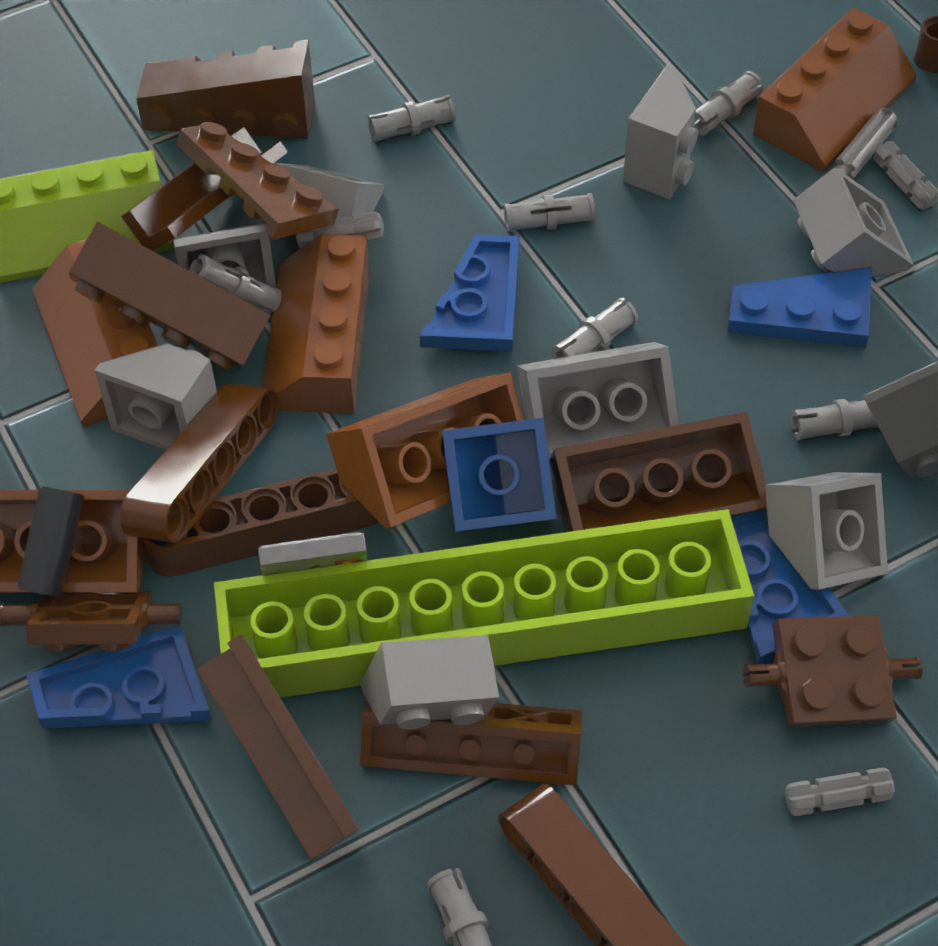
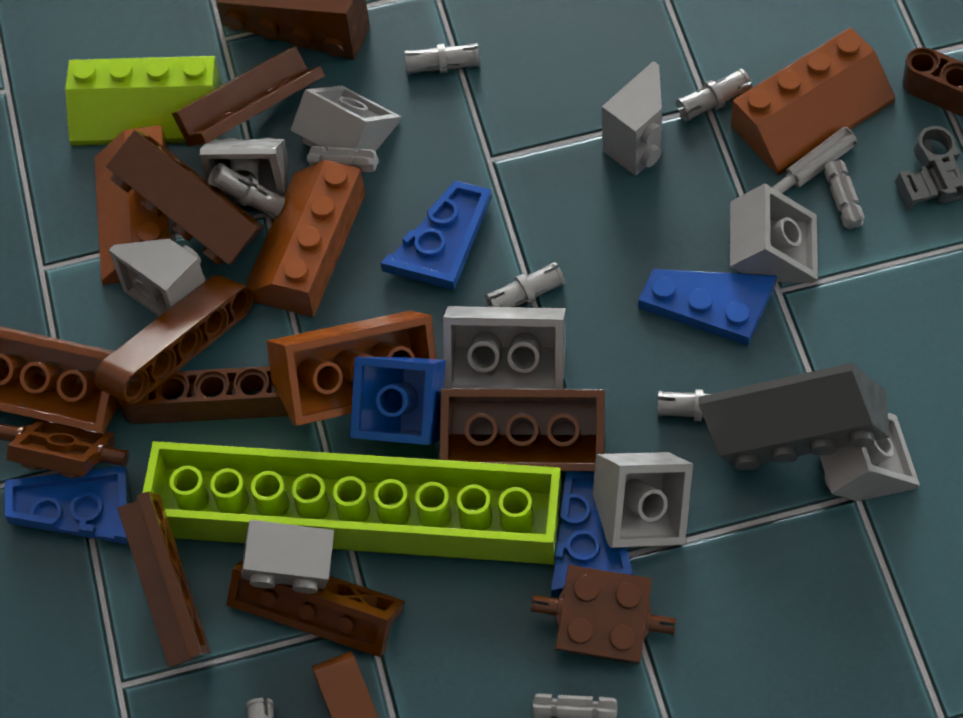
camera: 20 degrees right, 5 degrees up
(50, 541) = (42, 382): black brick -> none
(264, 187) = (285, 111): reddish brown wing -> none
(312, 553) = (229, 435): flat silver tile -> none
(577, 209) = (500, 170): light grey pin -> none

